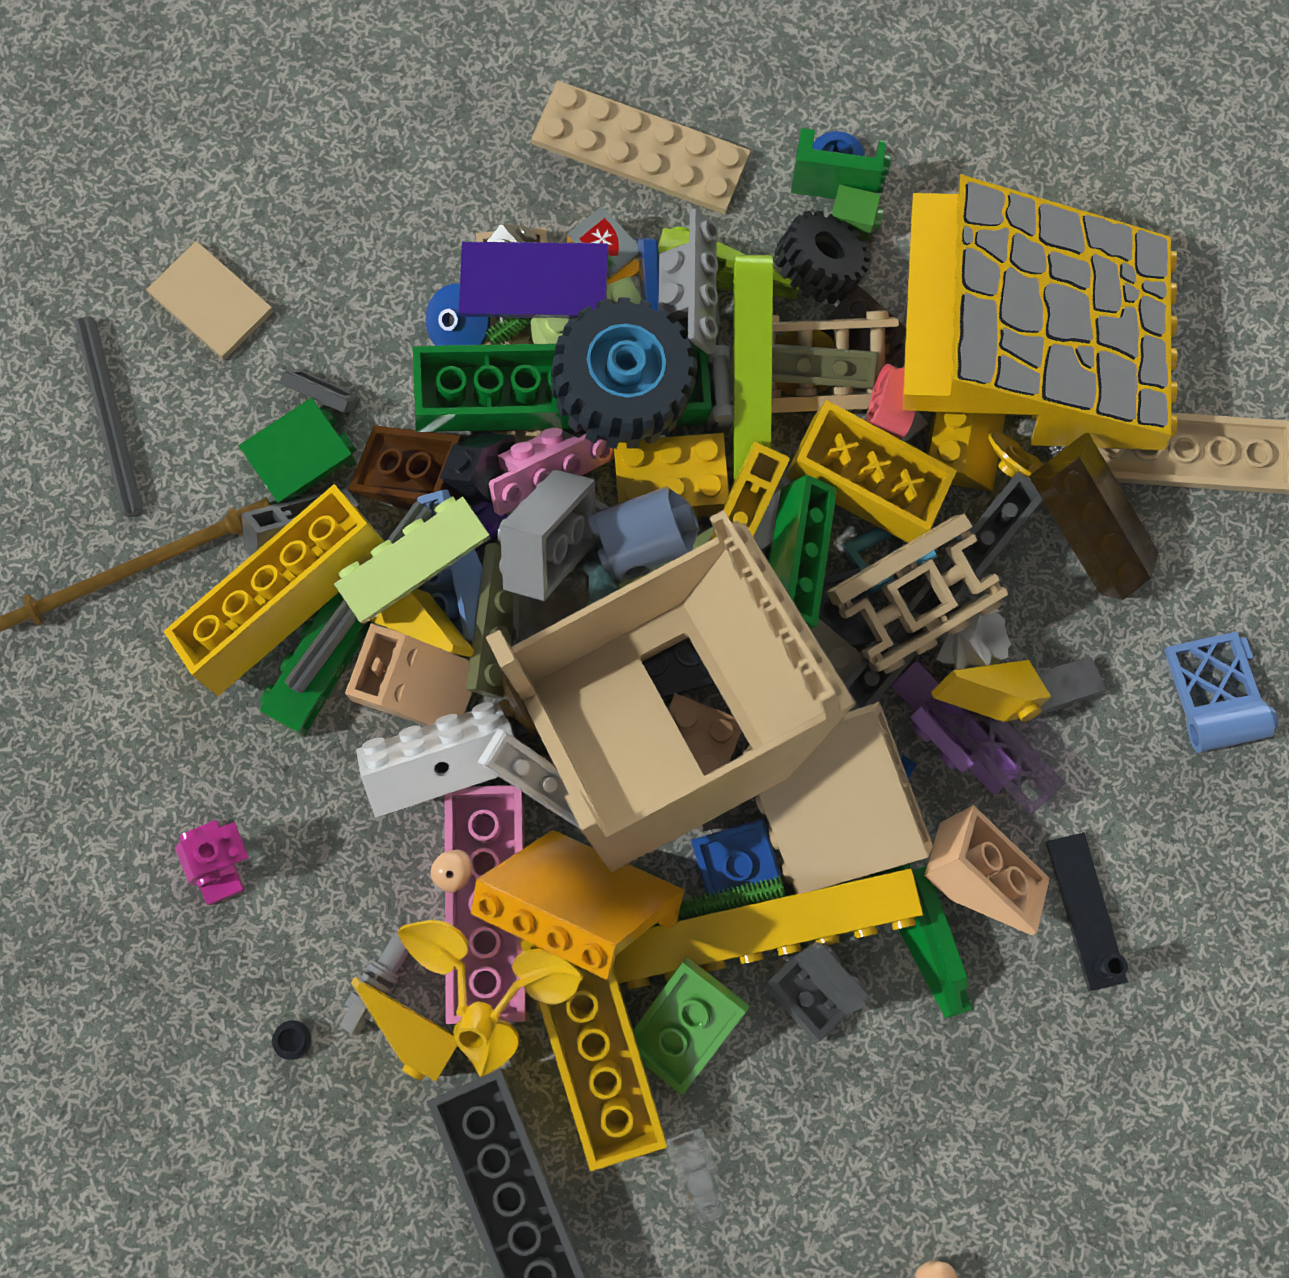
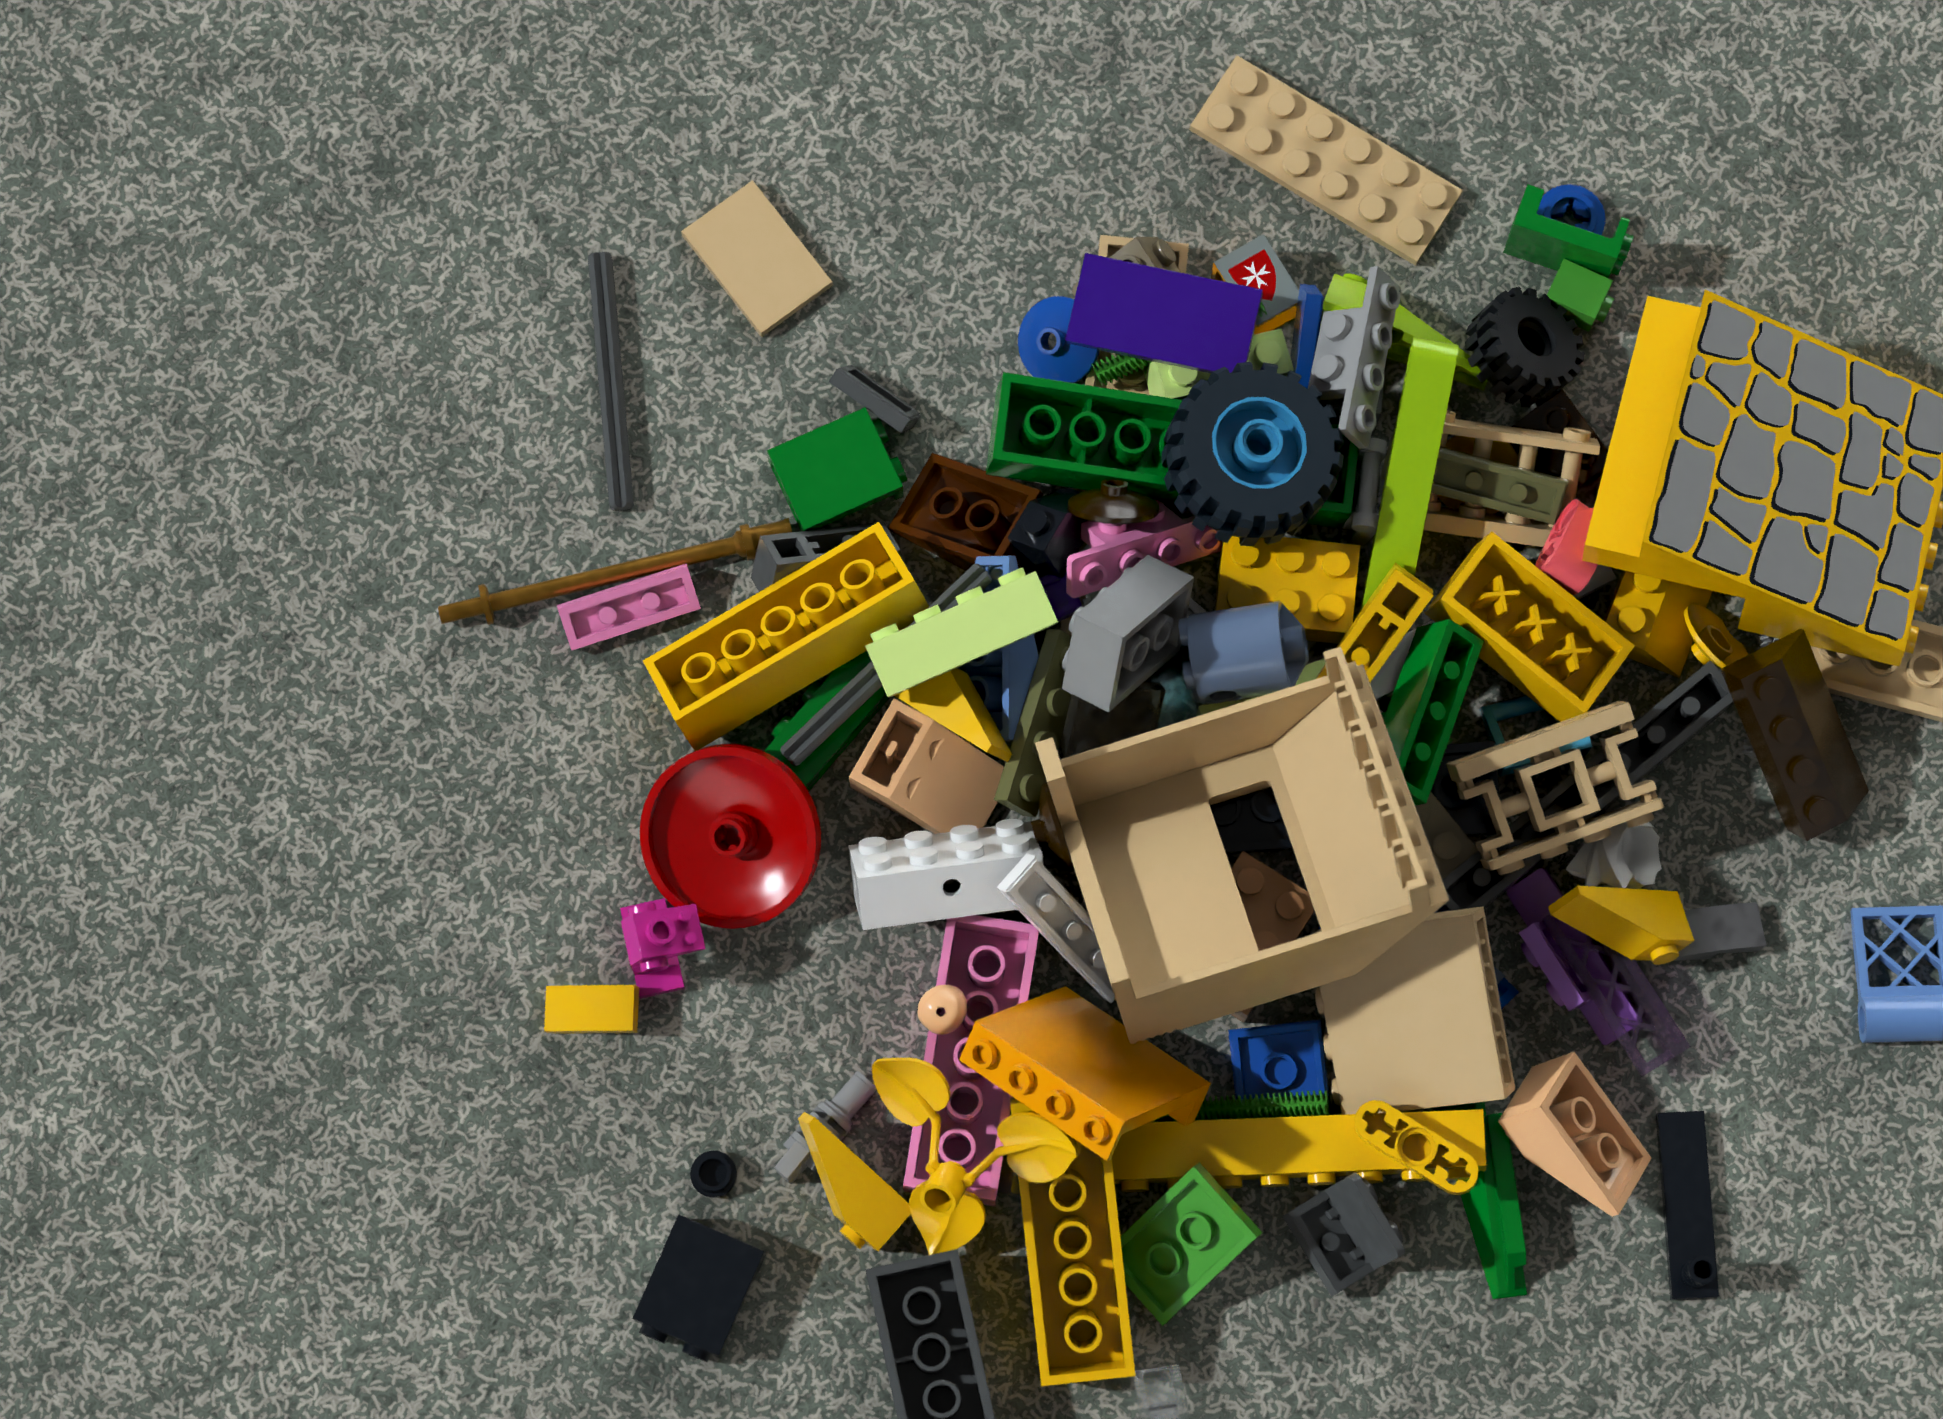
camera: 10 degrees right, 0 degrees up
(148, 590) = (628, 607): none -> bright pink plate
(169, 922) = (591, 1009): none -> yellow tile
(257, 759) = (730, 835): none -> red dish
(292, 1141) = (697, 1288): none -> black panel
(519, 434) = (1113, 504): none -> dark brown dish
(887, 930) = (1380, 1138): none -> yellow beam

